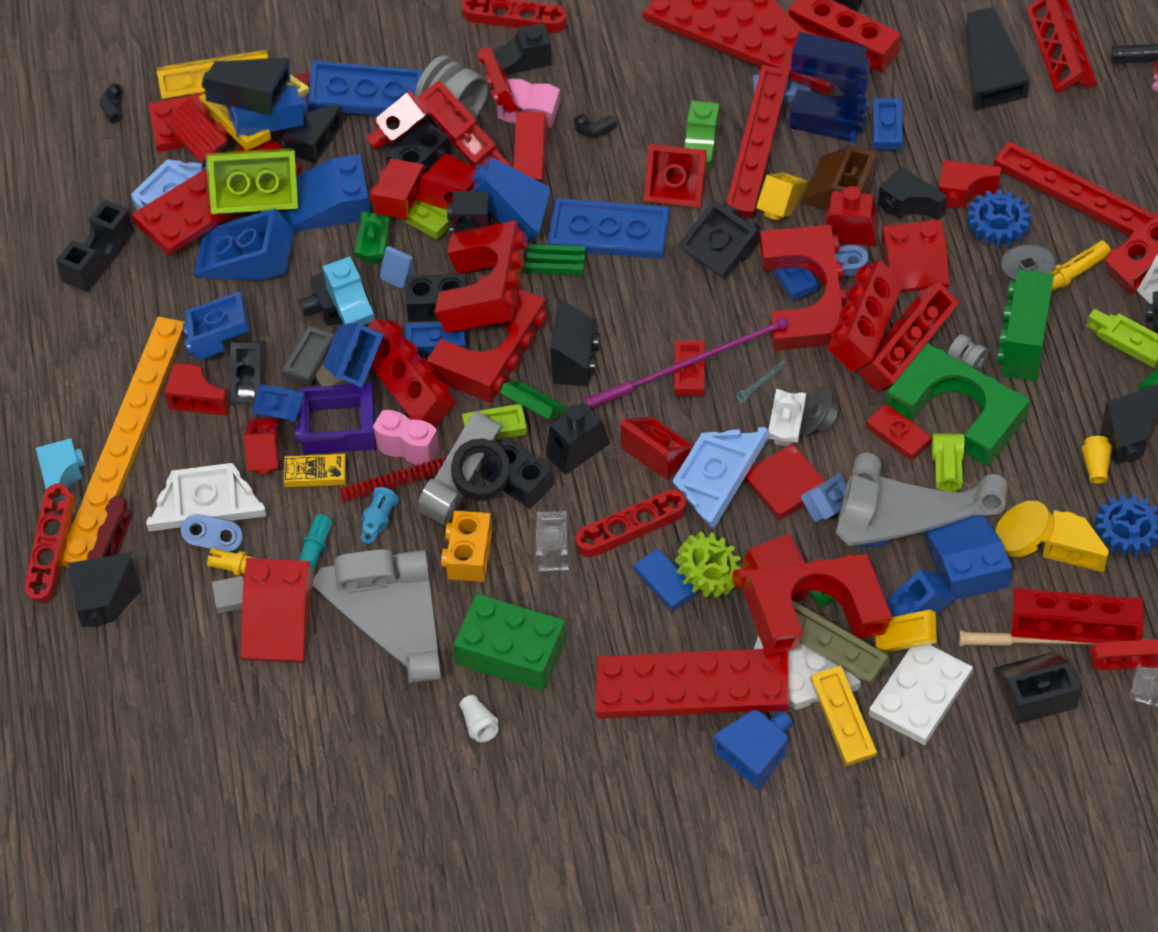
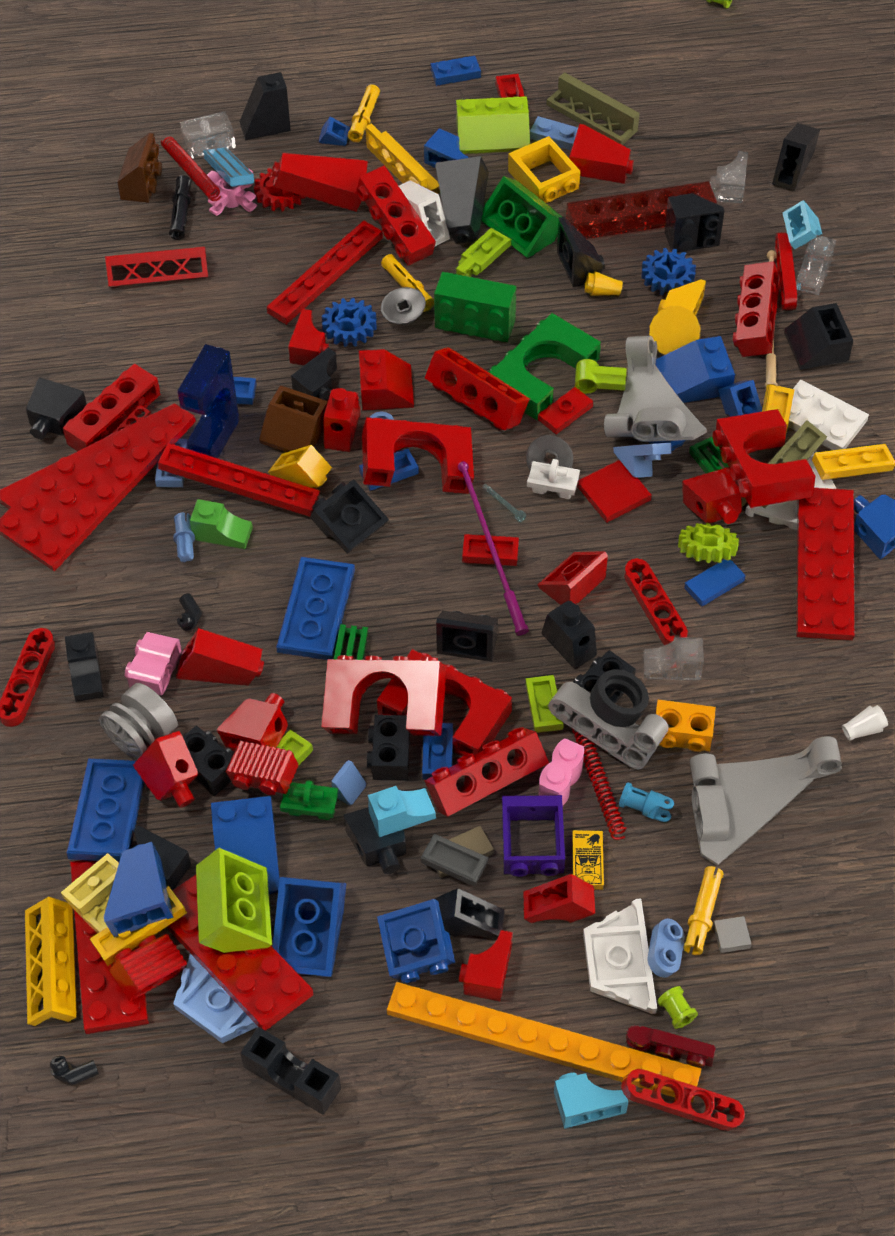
camera: 90 degrees left, 0 degrees up
(103, 587) = (742, 1044): black slope -> none
(149, 544) = (677, 1007): none -> lime bush
(247, 84) = (128, 884): black slope -> none
(275, 609) = (758, 883): red slope -> none
(277, 403) = (518, 883): blue plate -> none
(315, 540) = (677, 857): teal axle -> none
(352, 352) = (475, 806): blue torso -> none
(459, 126) = (202, 705): red slope -> none
(468, 211) = (307, 707): black brick -> none
(497, 80) = (156, 668): red plate -> none
(510, 642) = (789, 694): green brick -> none
(513, 195) = (287, 672): blue slope -> none
(533, 399) = (520, 669): green tile -> none
(675, 175) = (269, 547): red slope -> none
(676, 110) = (184, 537): none -> medium blue axle
(717, 470) = (605, 528): light blue wing -> none
(865, 315) = (457, 410): red brick -> none
(968, 352) = (491, 354): light grey wheel -> none
(993, 62) = (168, 311): black slope -> none

